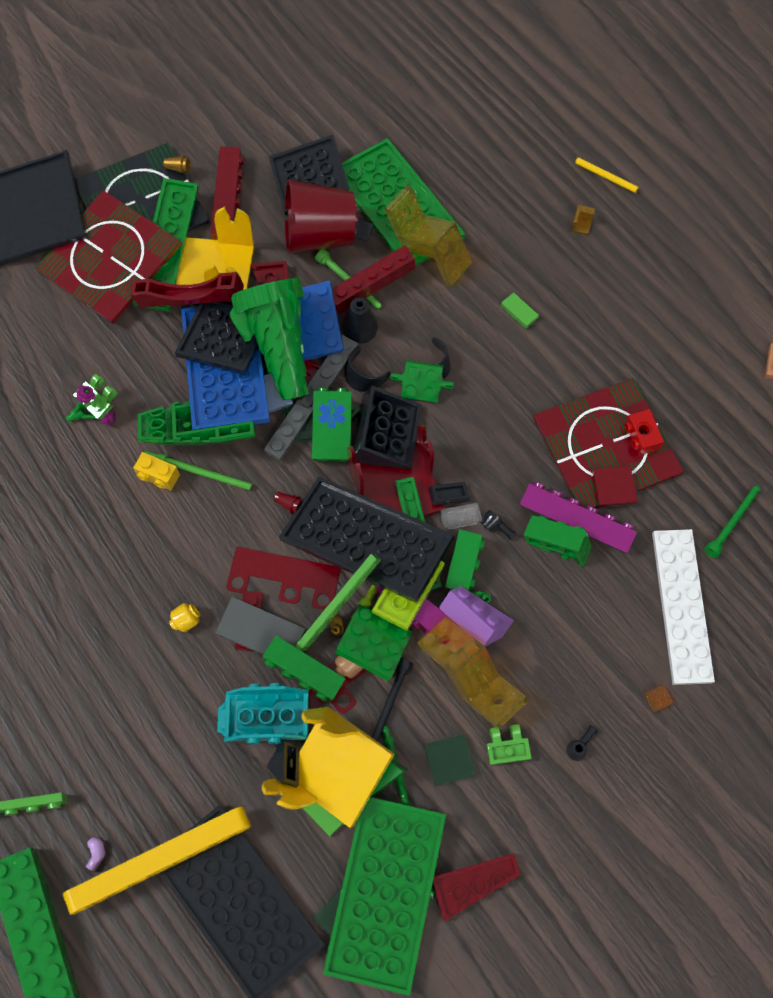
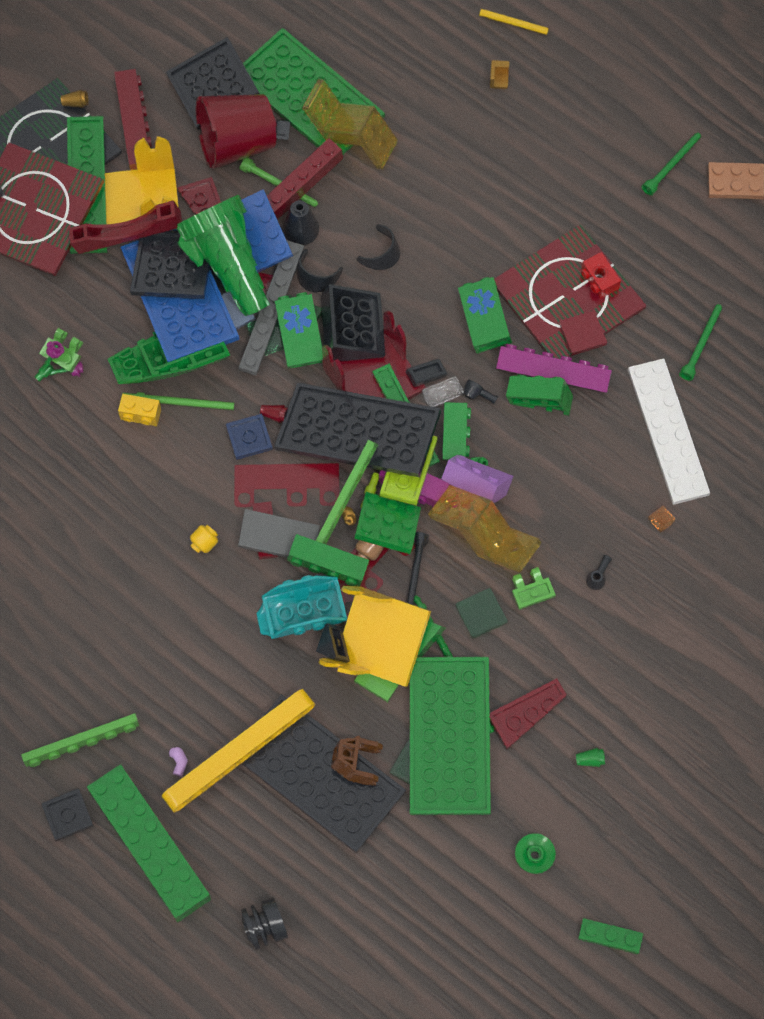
camera: 10 degrees left, 0 degrees up
(257, 521) = (249, 436): none -> dark blue plate
(273, 888) = (345, 759): none -> reddish brown piece
(422, 381) = (375, 269): green plate -> none
(519, 310) = (455, 180): bright green tile -> none
(519, 448) = (484, 315): none -> green panel
(532, 953) = (593, 757): none -> green cone
(710, 354) = (651, 185): none -> green piece

